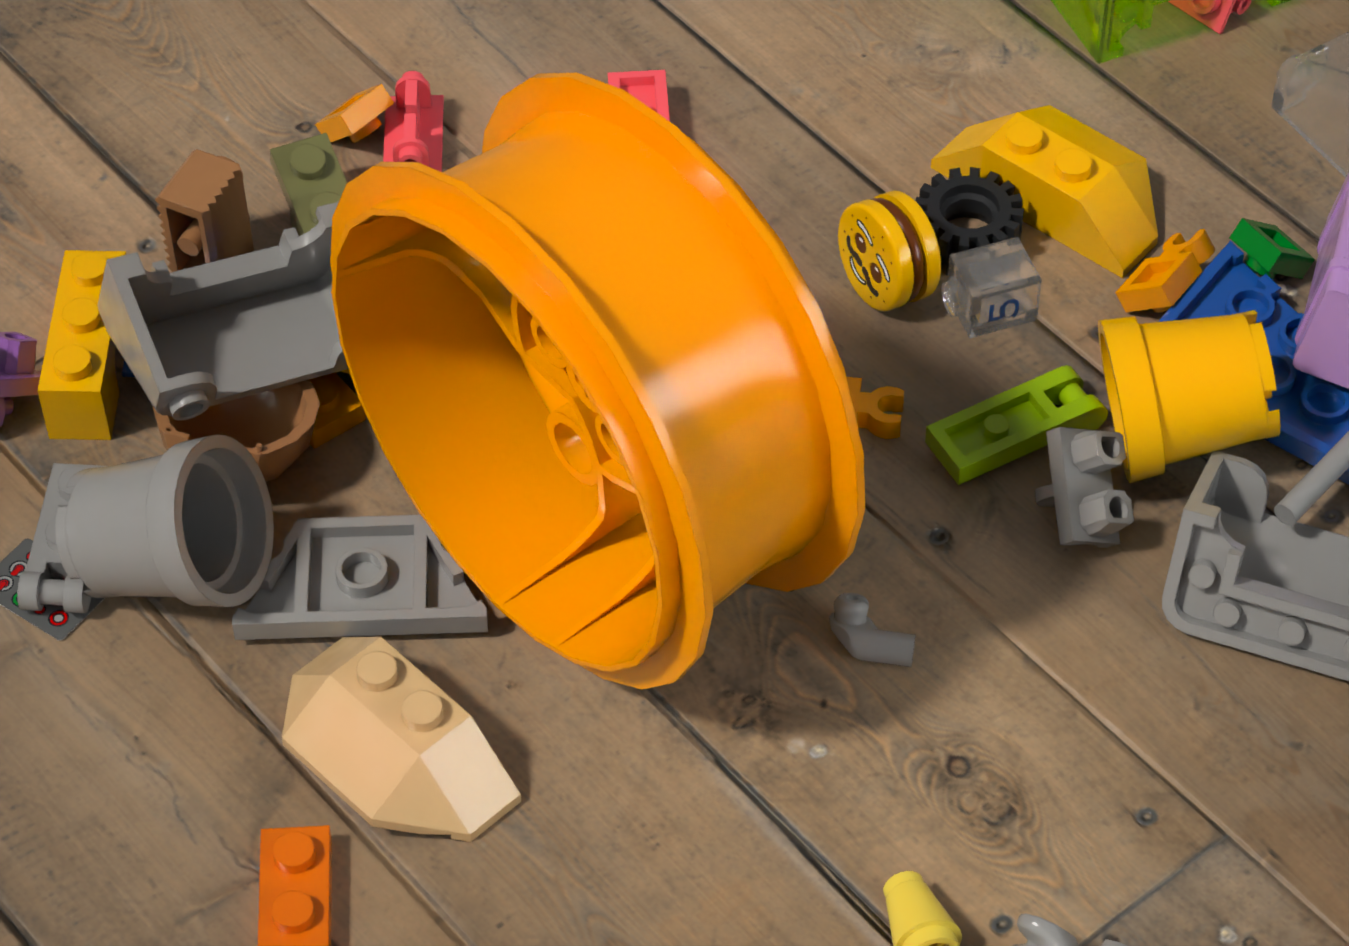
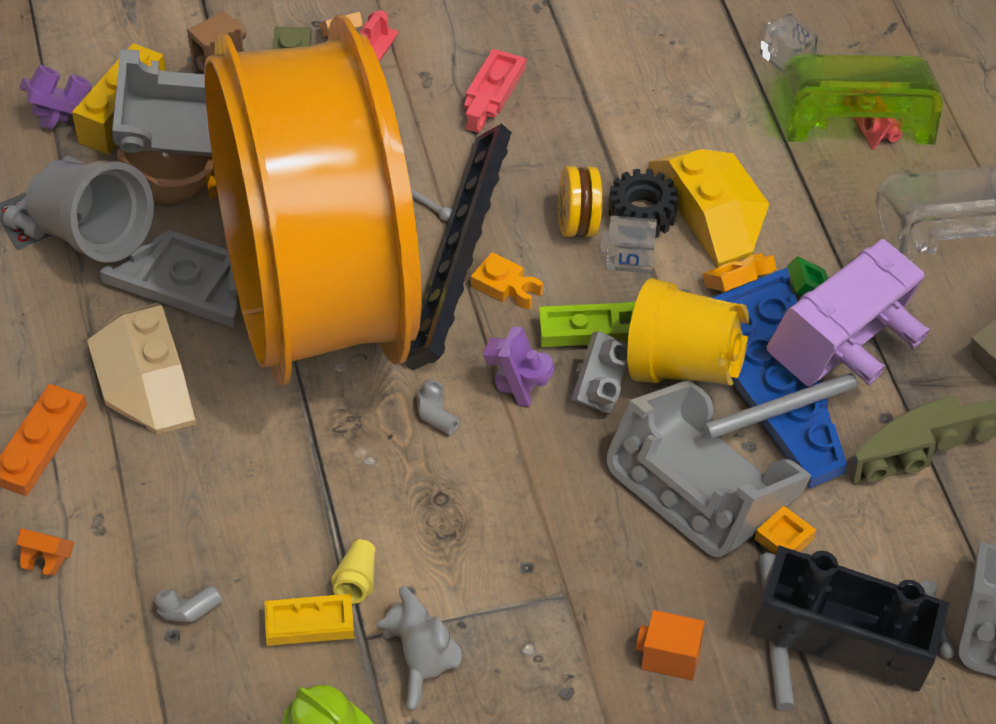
camera: 25 degrees right, 0 degrees up
(961, 525) = (518, 365): none -> medium lavender hips

